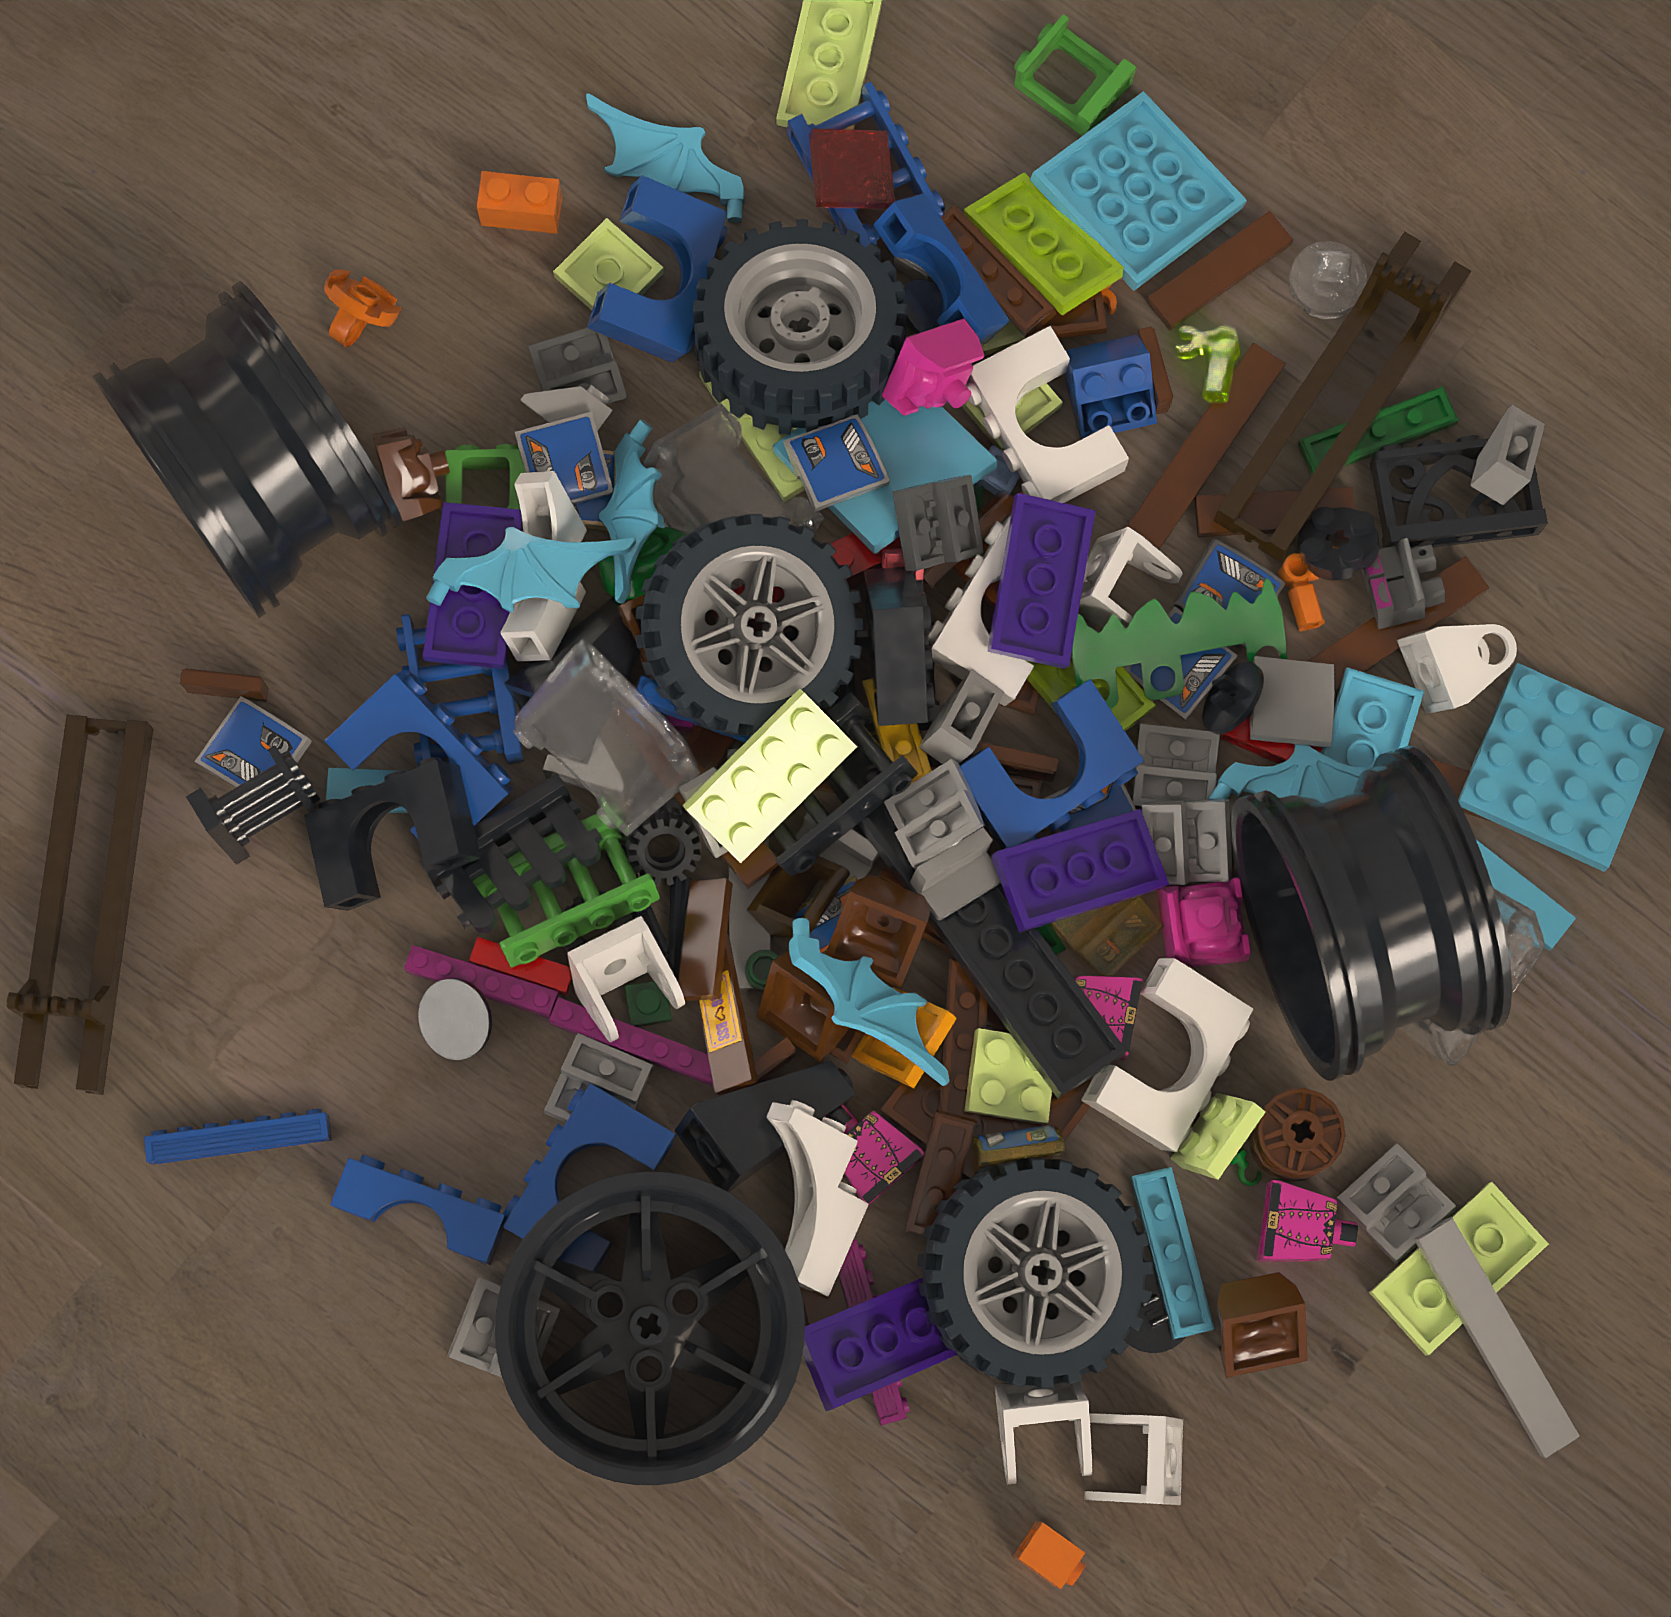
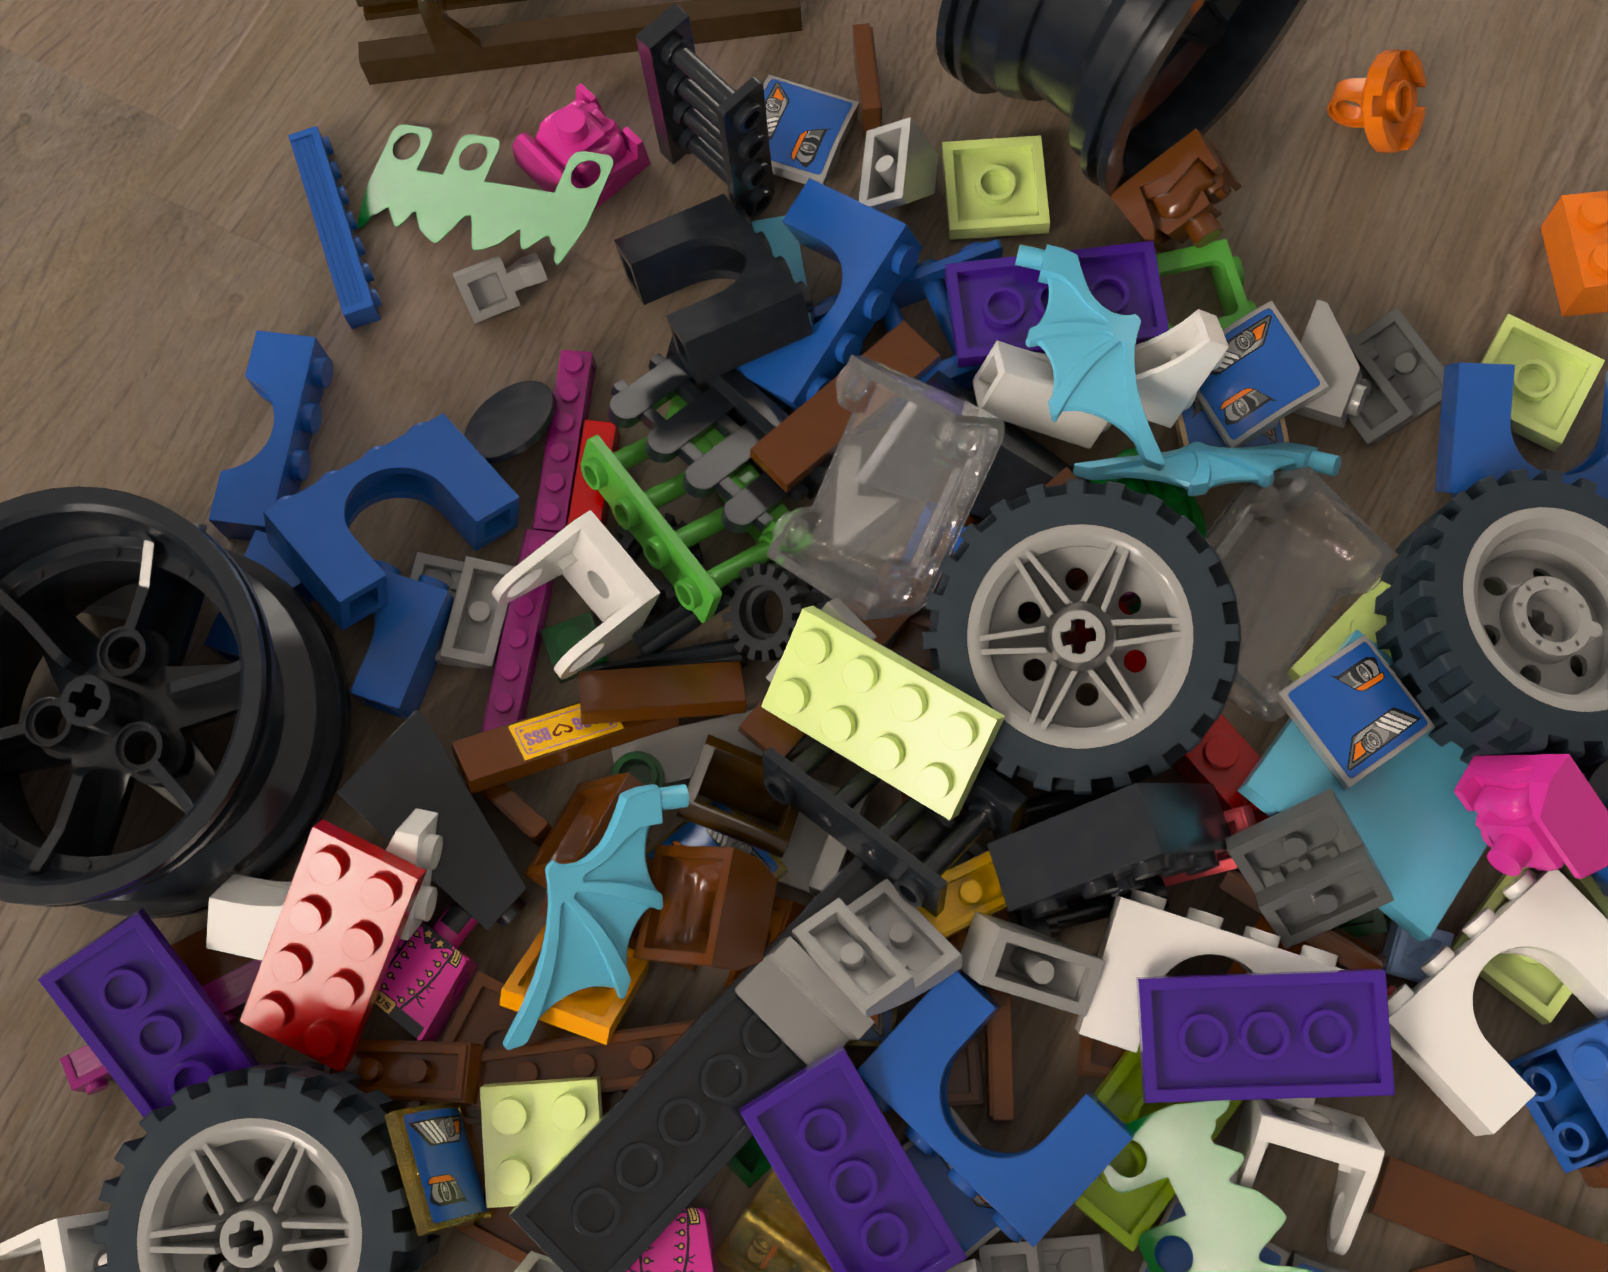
camera: 90 degrees right, 5 degrees down
(227, 927) = (575, 129): none -> dark pink brick
(243, 1031) = (494, 207): none -> piece
(323, 678) = (897, 166): none -> light grey slope
(329, 1014) = (491, 287): none -> light grey plate
(346, 609) = (995, 187): none -> yellowish green plate
(480, 1083) = (426, 465): none -> blue arch
(524, 767) = (817, 426): none -> reddish brown tile
(851, 1194) = (332, 945): none -> plate

